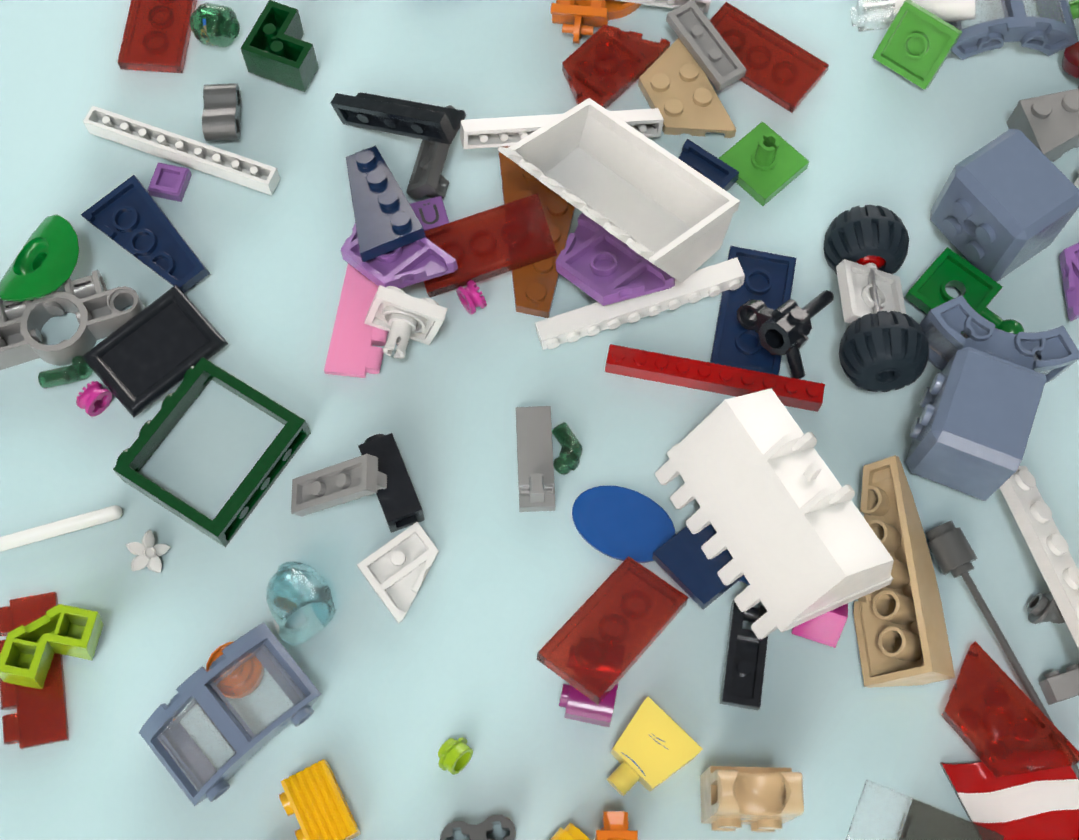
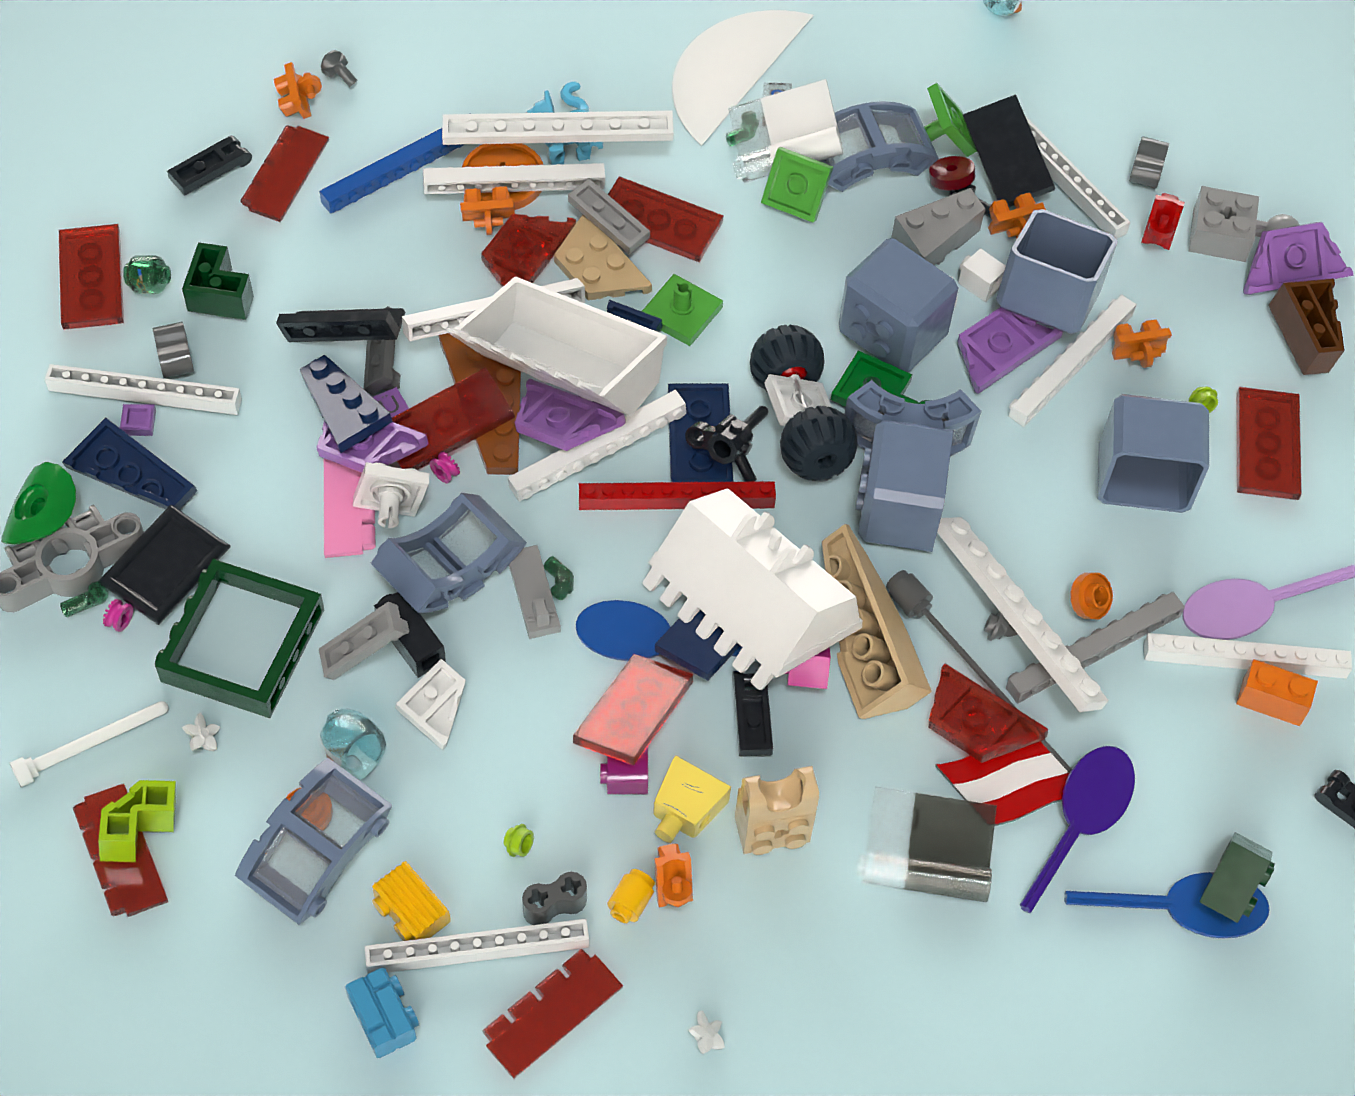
camera: 15 degrees left, 10 degrees down
(451, 401) = (449, 554): none -> sand blue window

